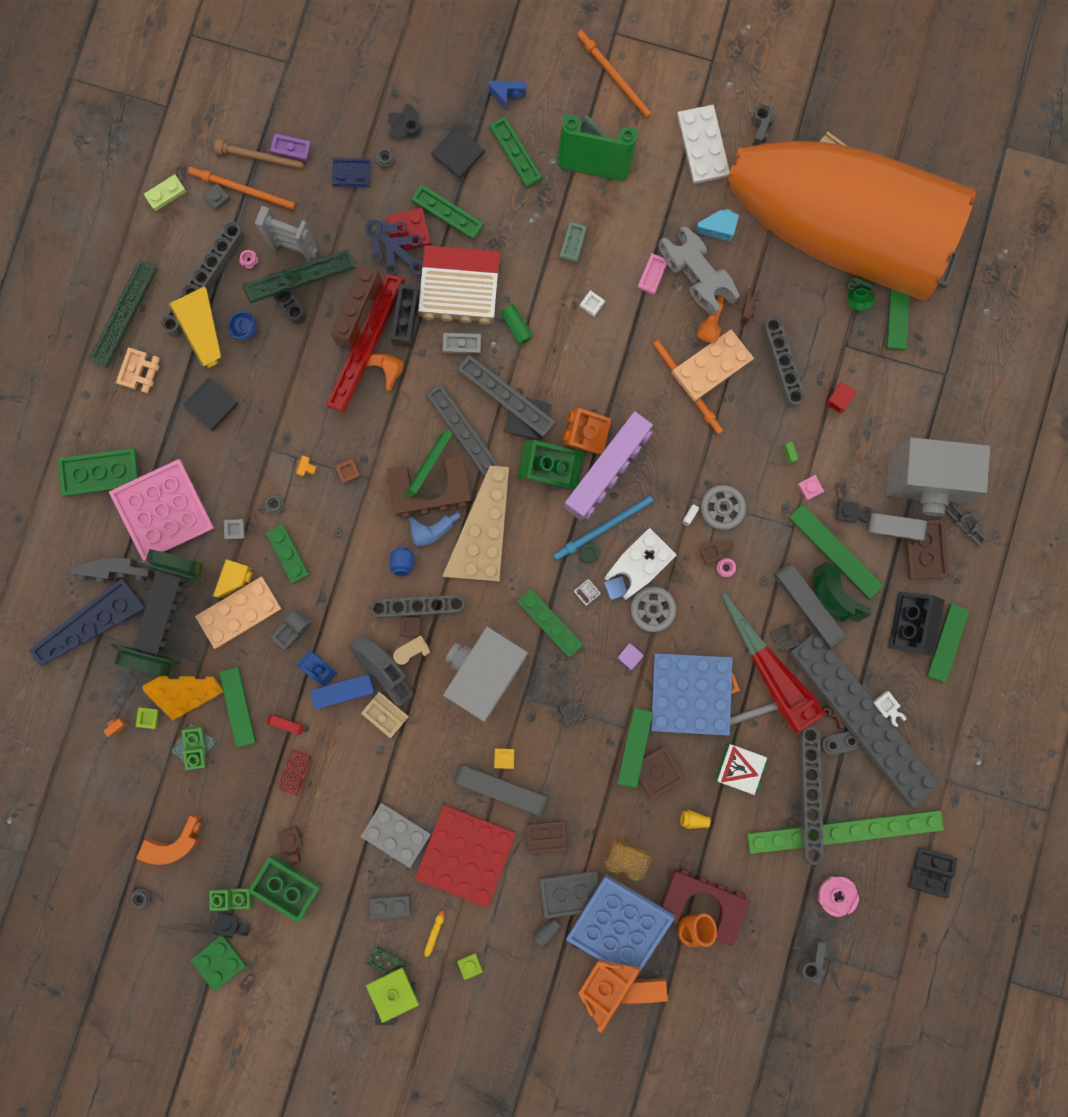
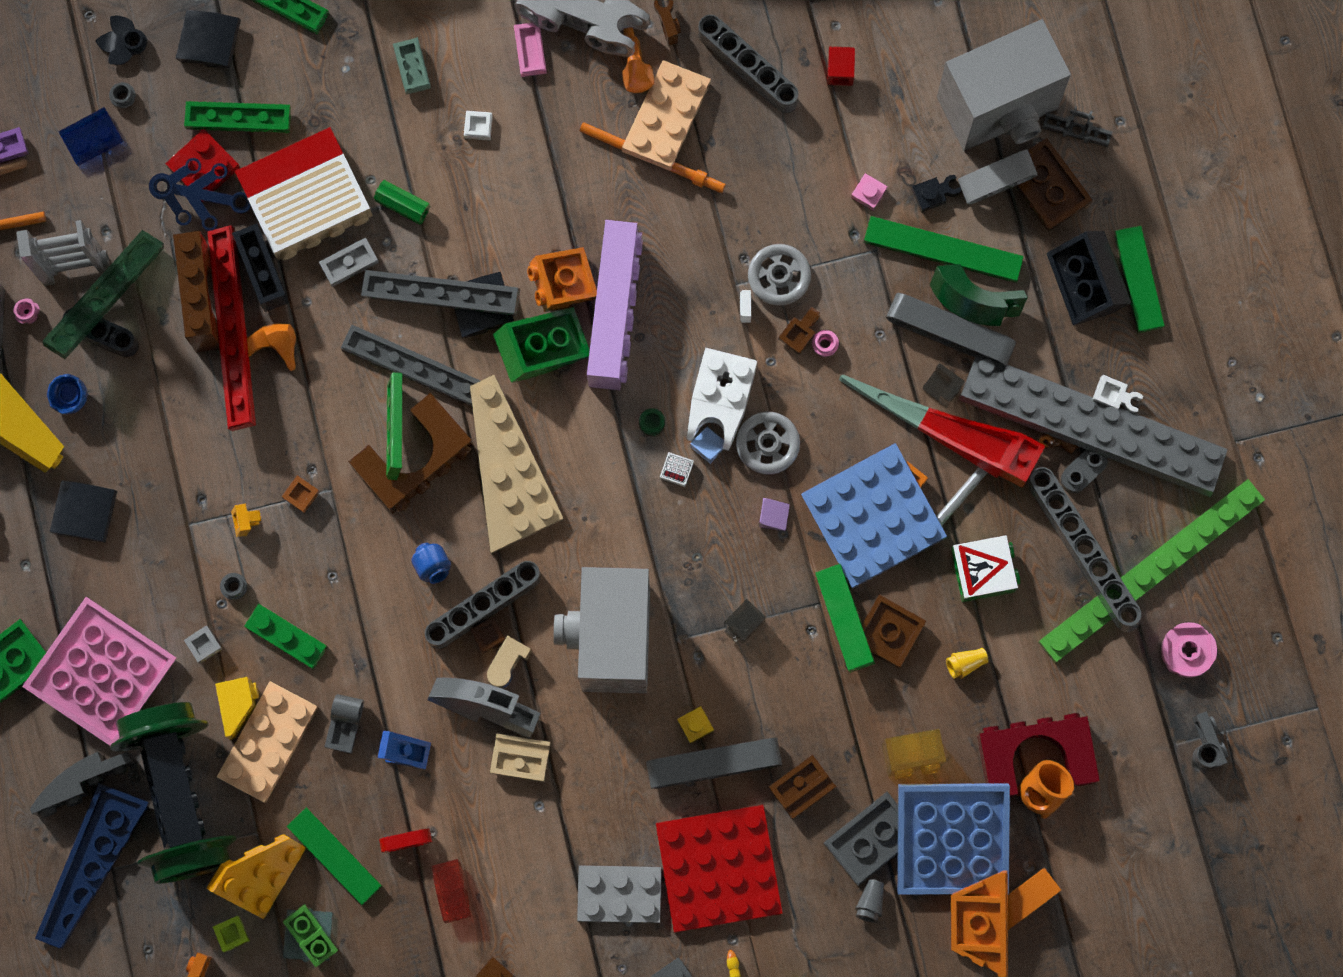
camera: 25 degrees left, 5 degrees down
(342, 691) = (452, 759): blue slope -> none
(425, 535) = (440, 515): medium blue animal -> none
(549, 623) = (654, 532): green plate -> none
(571, 547) = (627, 426): dark azure bar -> none
(790, 453) = (820, 164): bright green tile -> none
(932, 872) = (1282, 557): black slope -> none

